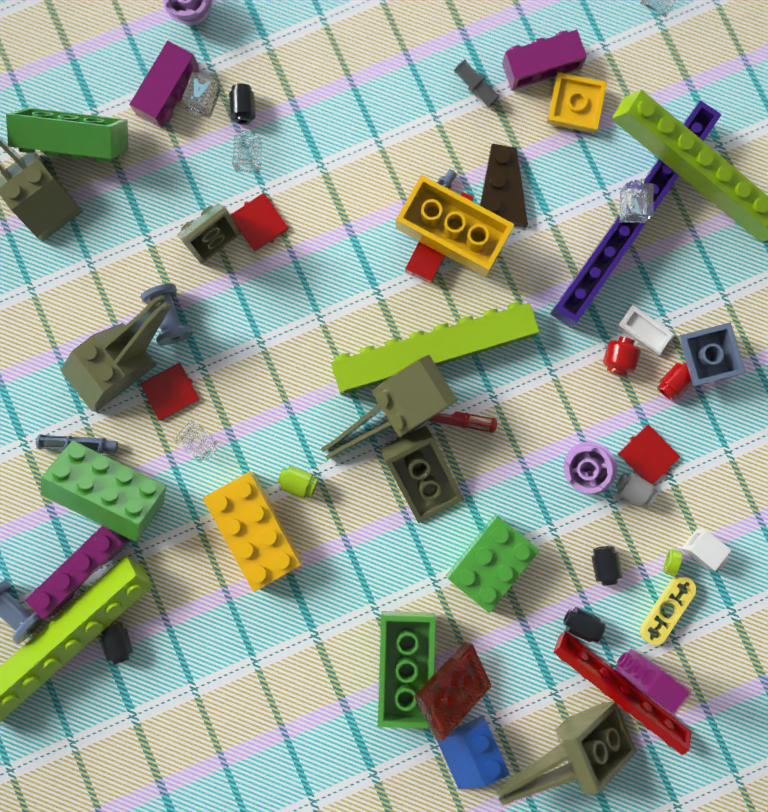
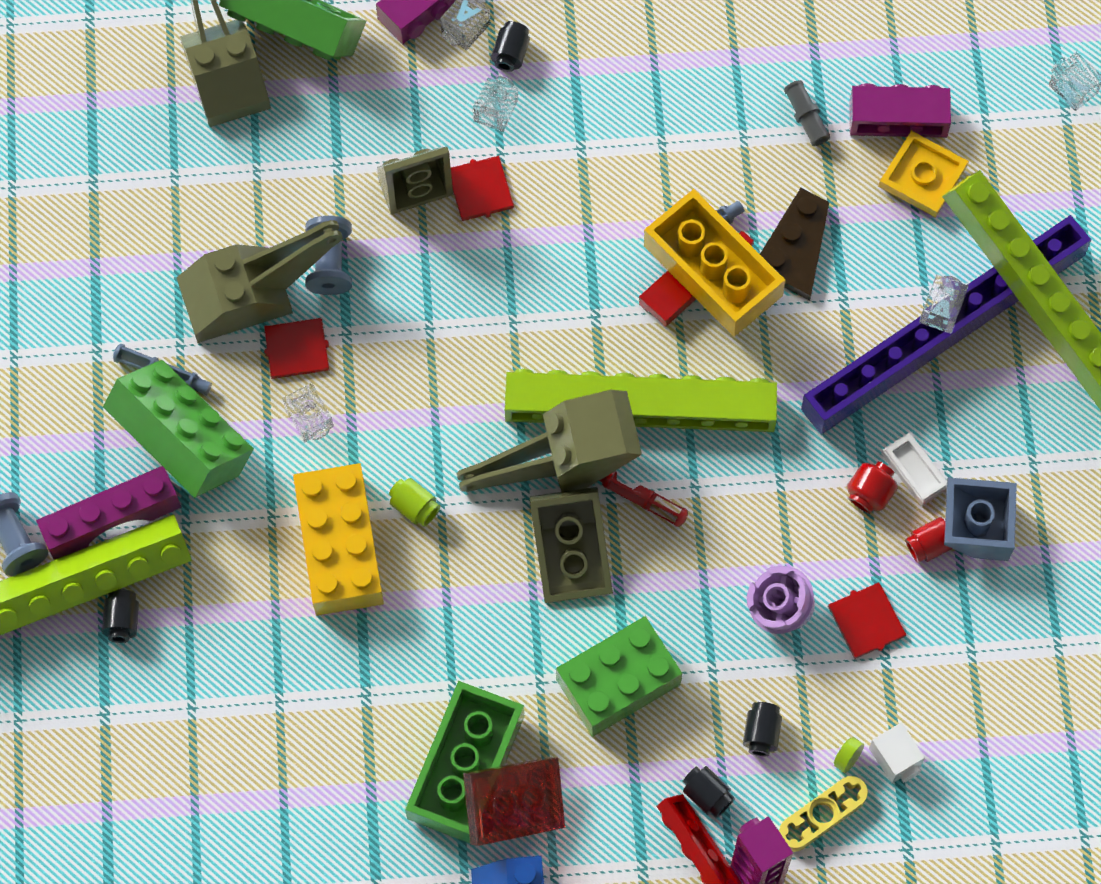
camera: 20 degrees right, 15 degrees down
(636, 490) = (833, 651): light grey brick -> none

